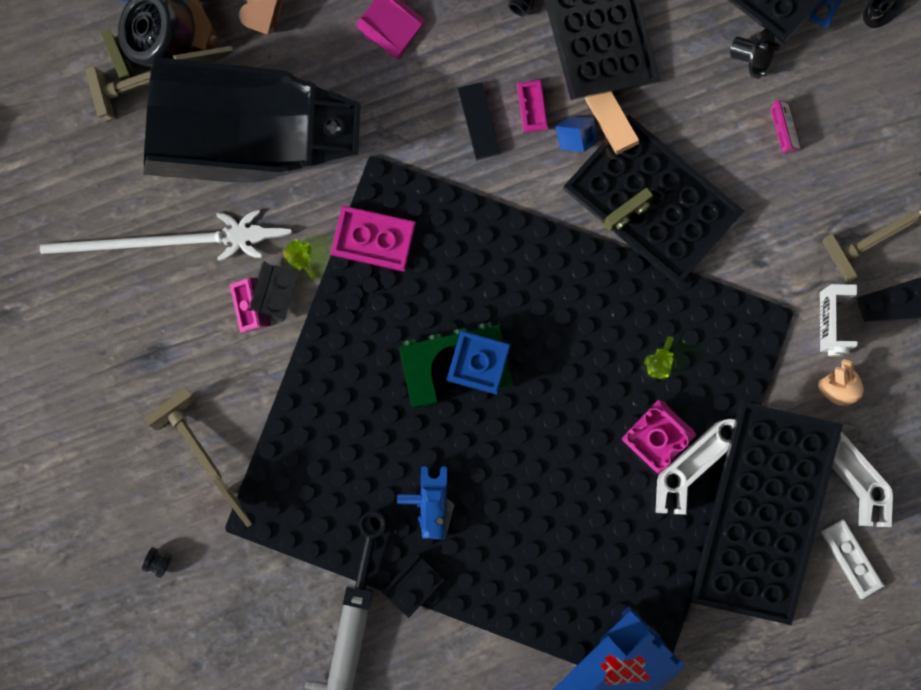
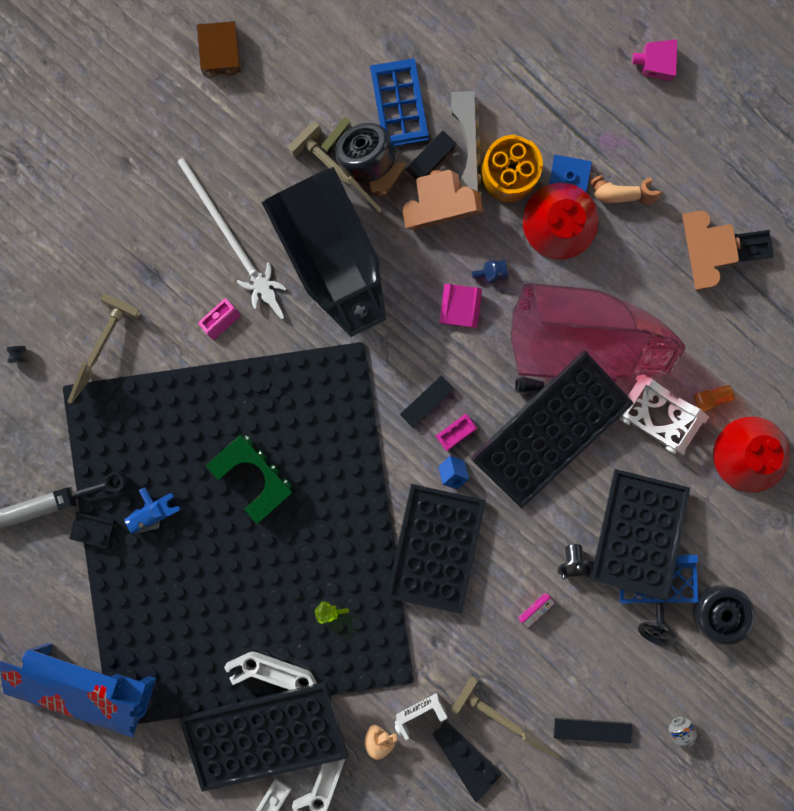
camera: 55 degrees right, 5 degrees up
(273, 291) = (235, 329): black plate -> none
(298, 254) = (268, 333): clear neon green piece -> none
(373, 238) = (306, 376): dark pink tile -> none
(478, 362) = (257, 493): blue plate -> none
(612, 122) = (473, 494): light nougat tile -> none
(637, 204) = (423, 541): olive plate -> none
(659, 436) = (278, 638): dark pink slope -> none

